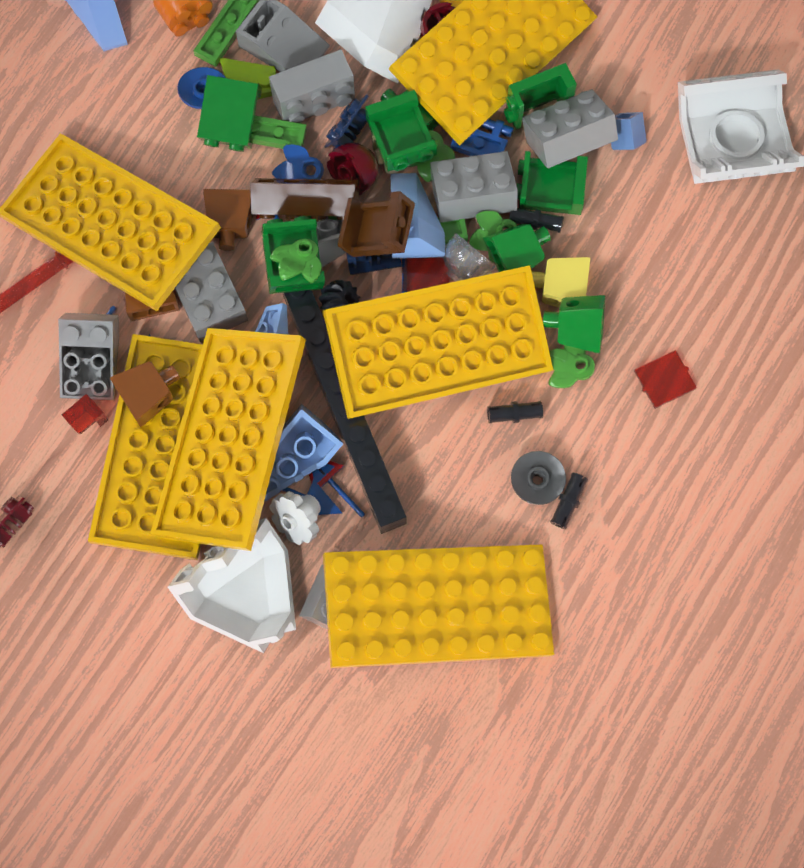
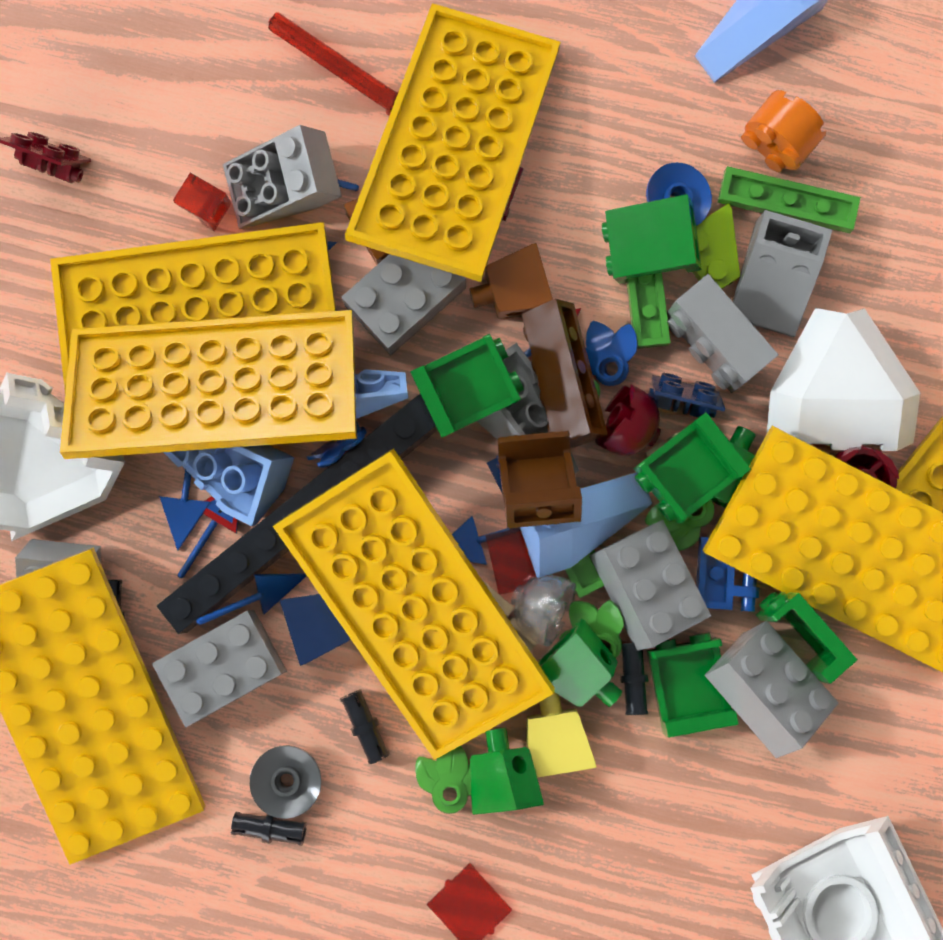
camera: 70 degrees right, 10 degrees up
(145, 390) = (247, 261): dark orange torso -> none
(294, 261) = (453, 391): bright green plate -> none
(296, 516) = (148, 498): white plant -> none
(307, 372) = (334, 450): none -> blue plate
(338, 294) = (438, 463): black gear -> none
(393, 449) = (270, 590): none -> blue piece
(430, 424) = (312, 627): none -> dark blue torso
(440, 500) = (219, 667): none -> light grey brick
(630, 131) = (800, 768): medium blue panel -> none

